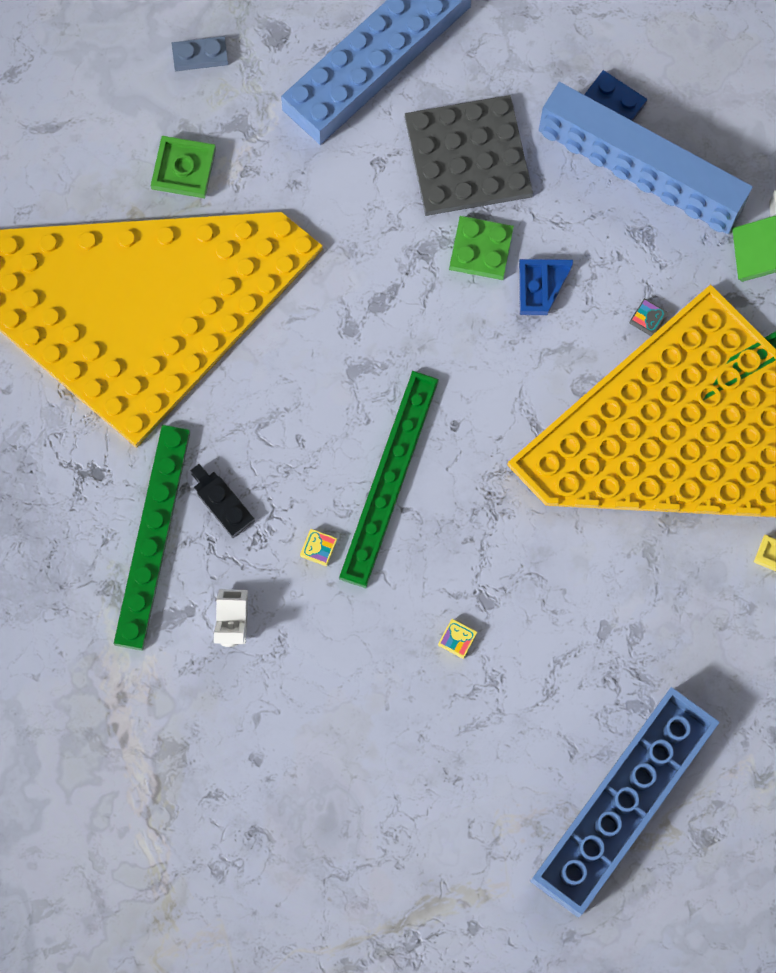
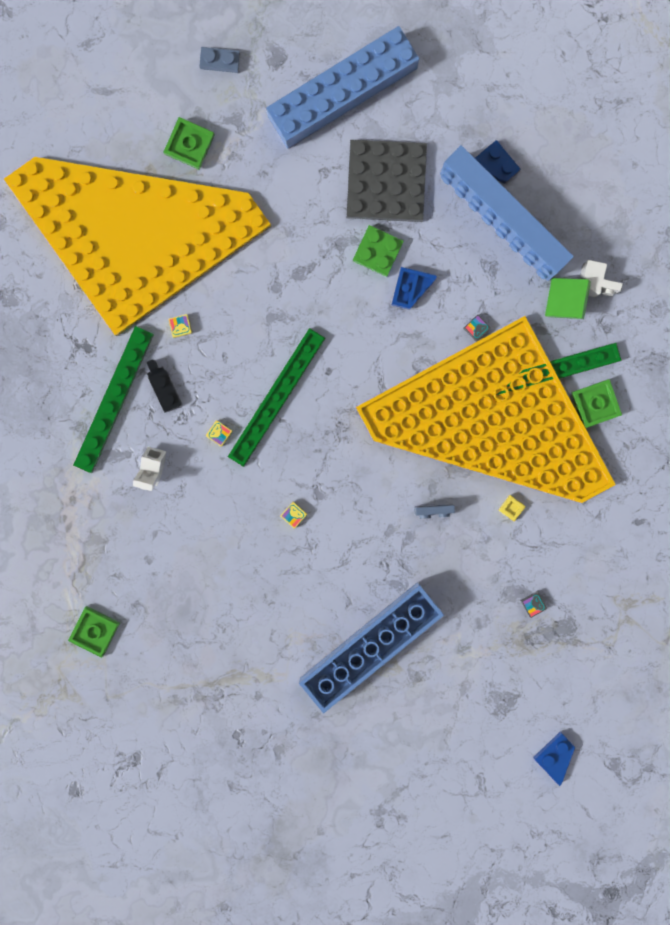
camera: 20 degrees right, 15 degrees up
(197, 888) = (94, 631): none -> bright green tile
(226, 411) = (180, 326): none -> tile
(672, 578) = (442, 510): none -> sand blue plate

